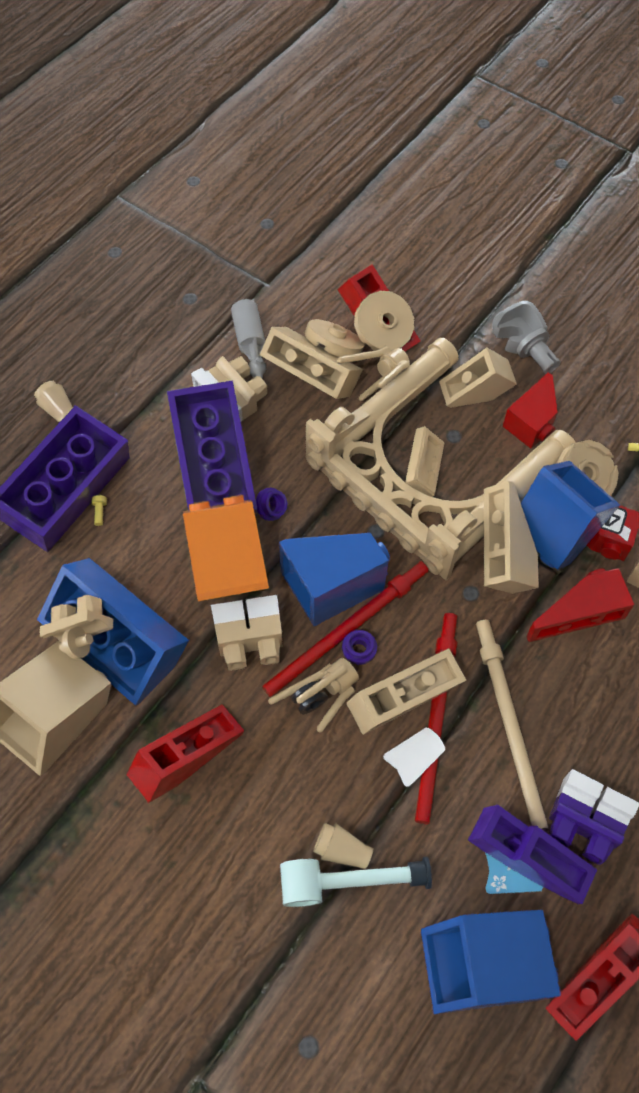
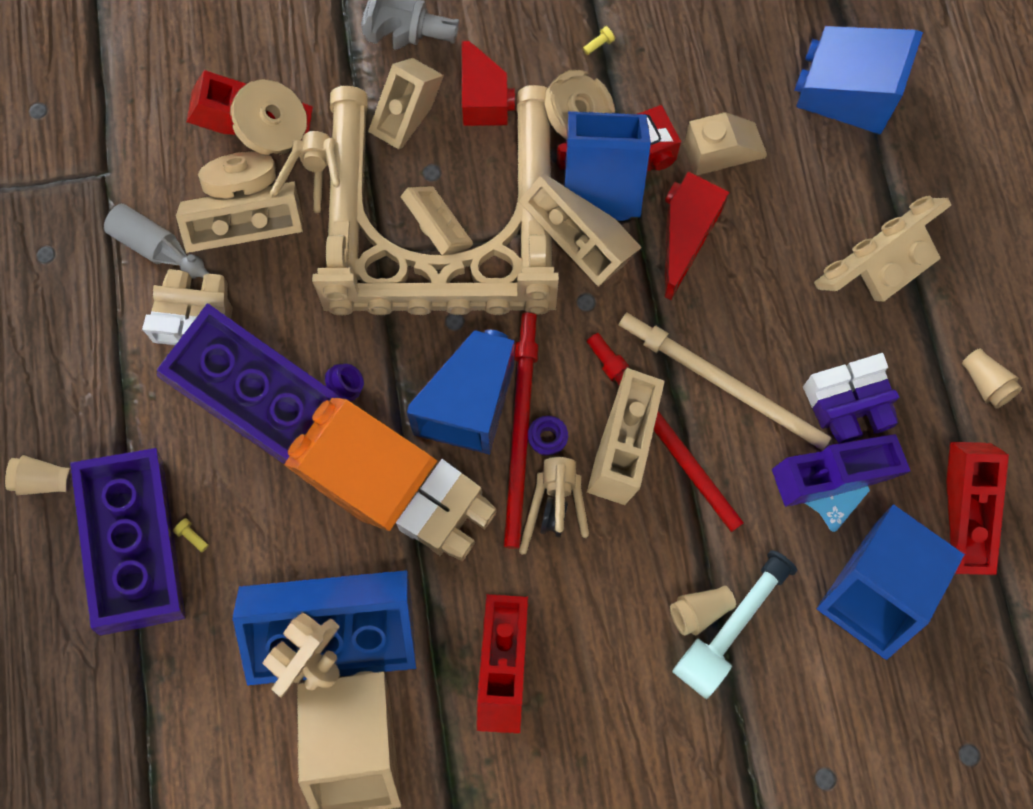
camera: 45 degrees left, 10 degrees up
(415, 755) = (681, 480): white sticker -> none

